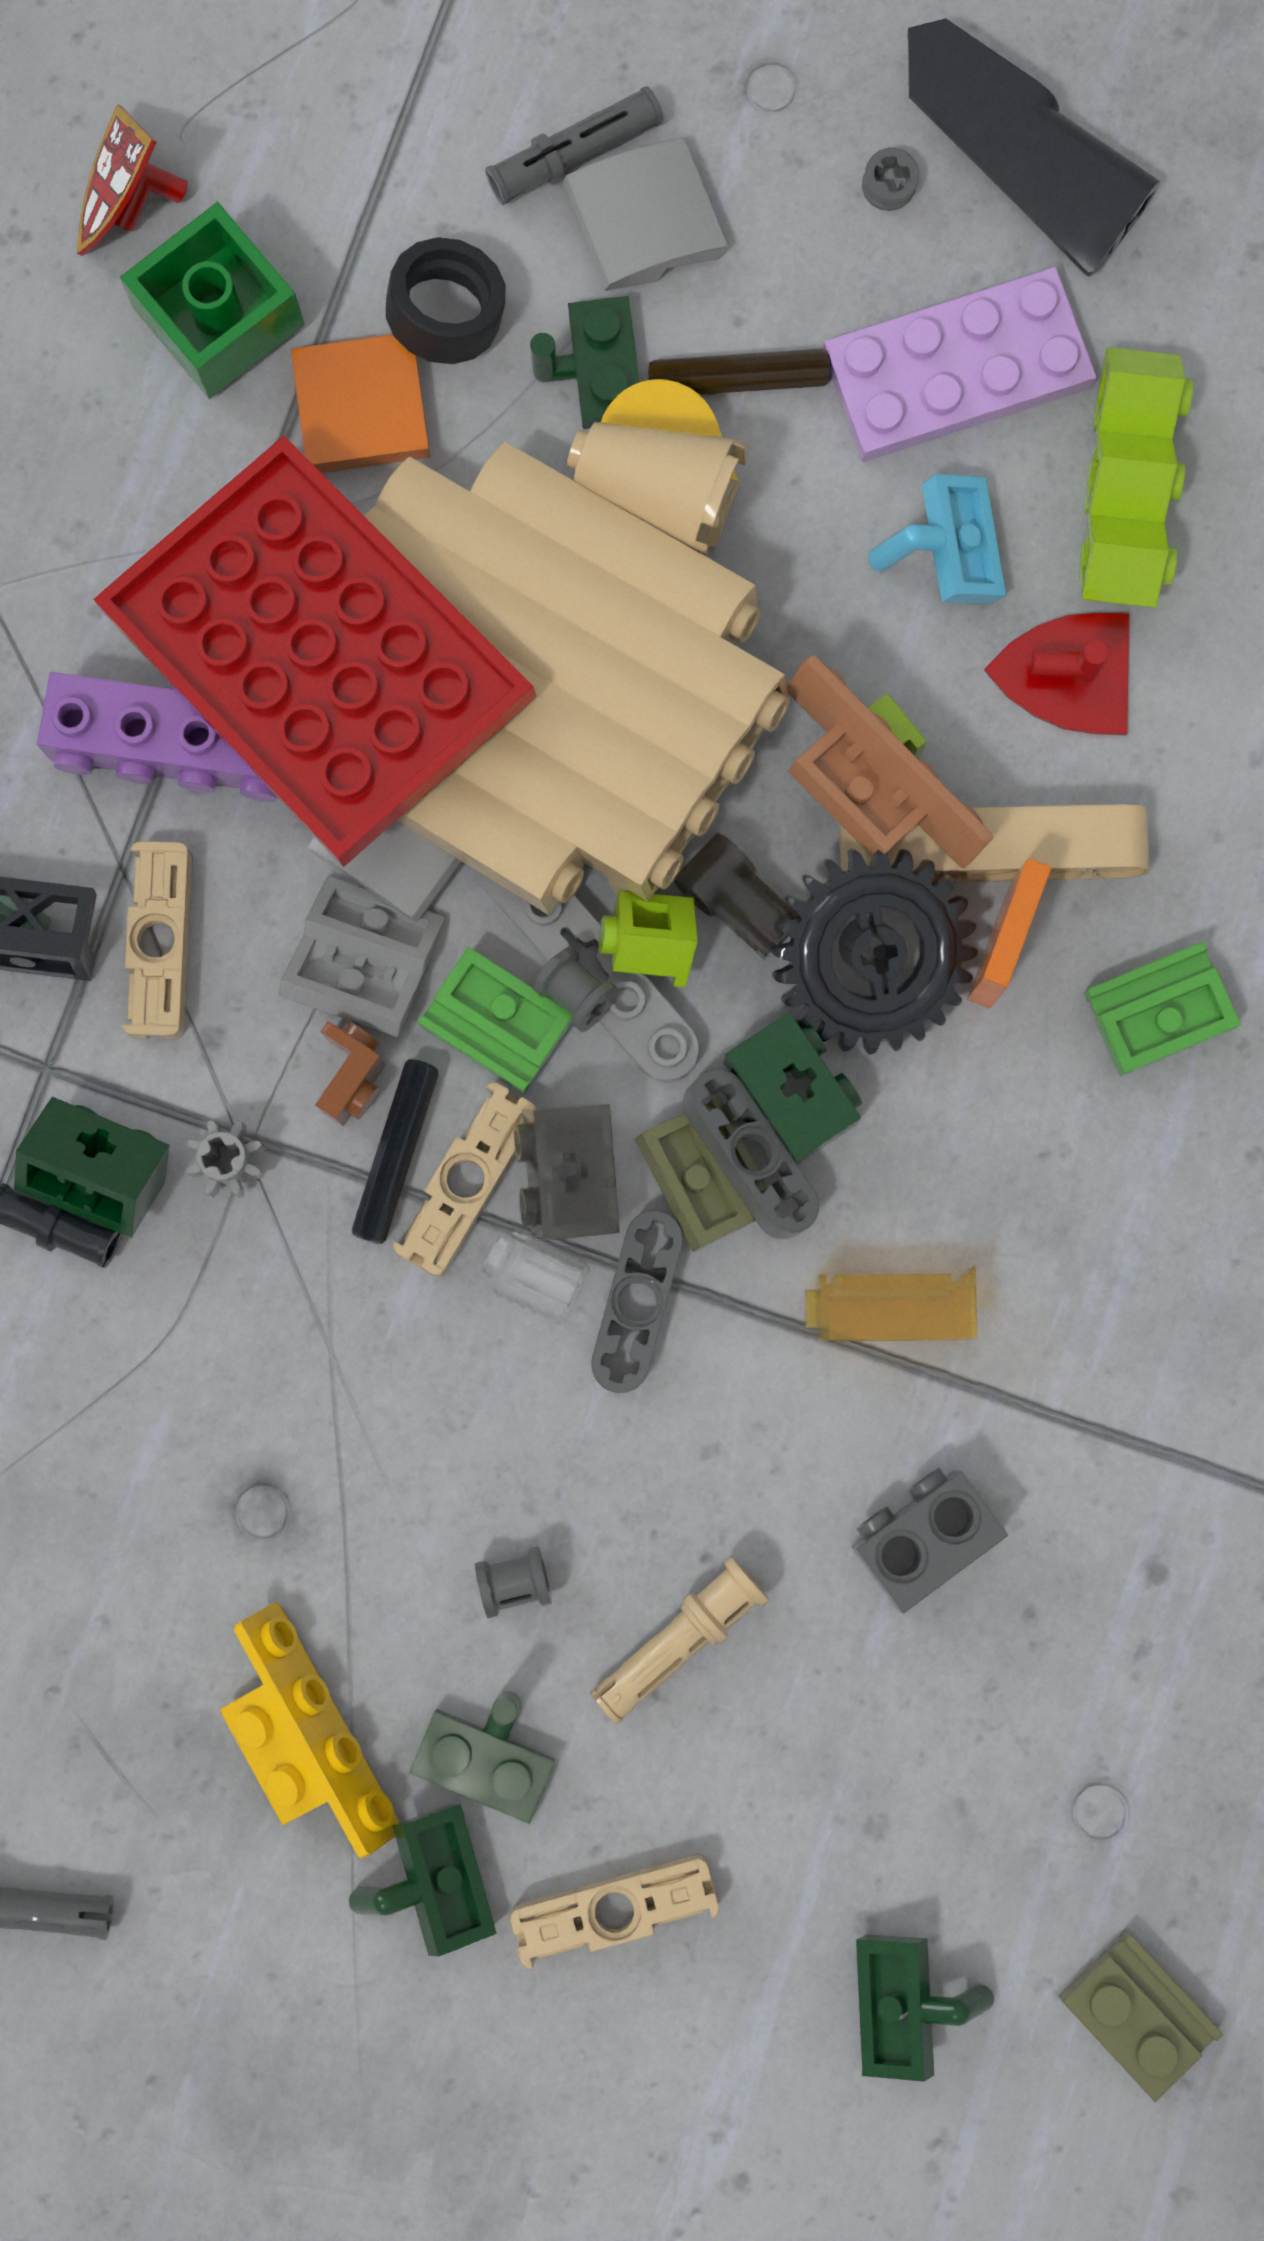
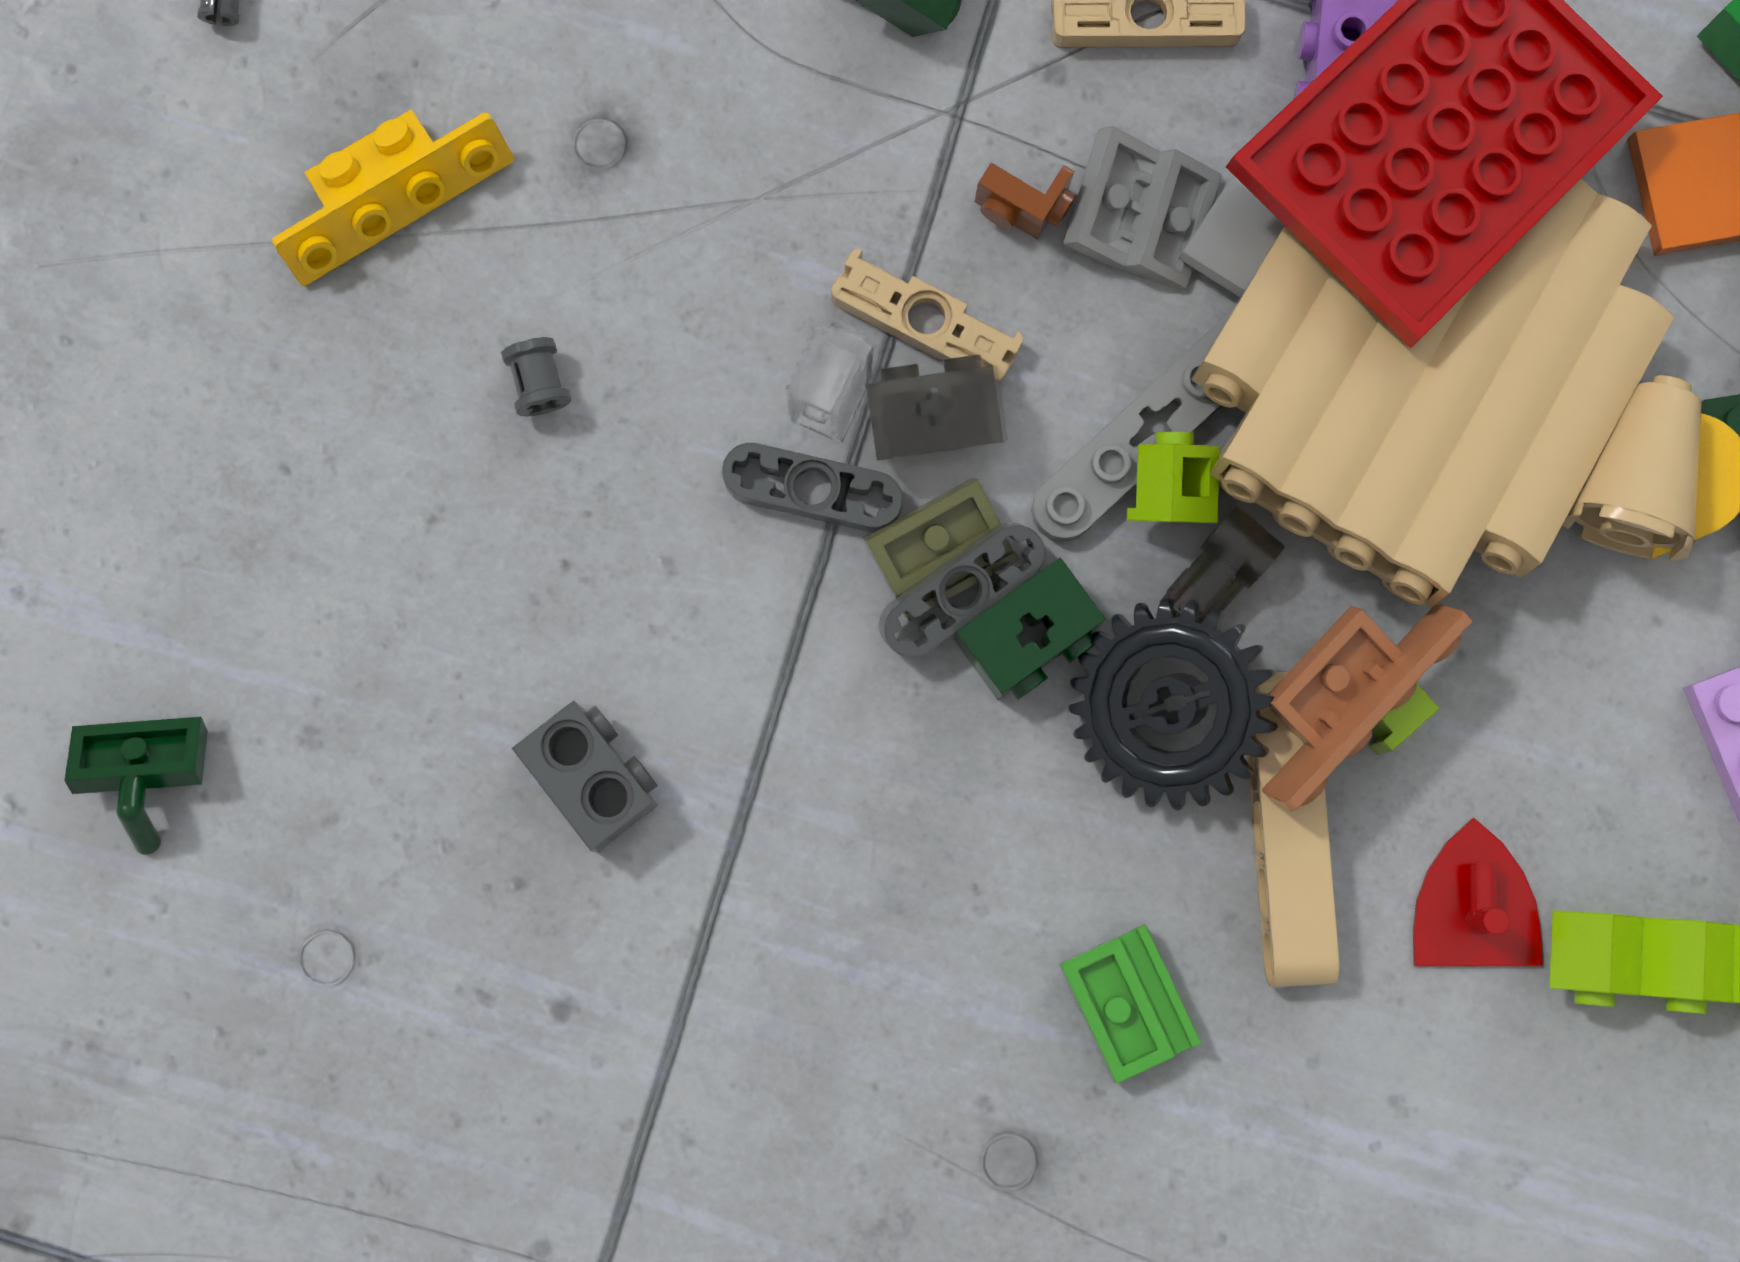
camera: 80 degrees right, 0 degrees up
(209, 1152) = (944, 73): light grey gear -> none
(395, 1151) = (951, 249): black axle -> none
(440, 1882) = (251, 318): dark green plate -> none
(484, 1761) = (368, 357): plate -> none
(496, 1020) = (1084, 339): bright green plate -> none
(570, 1919) = (244, 524): tan piece -> none
(575, 989) = (1117, 408): dark grey bush -> none
(702, 1621) = (502, 558): tan pin -> none
(893, 1307) = (814, 734): clear yellow window -> none
(958, 534) = (1611, 783): medium azure plate -> none
(1009, 933) = (1198, 838): orange tile -> none
(1140, 2016) = (130, 999): olive plate -> none

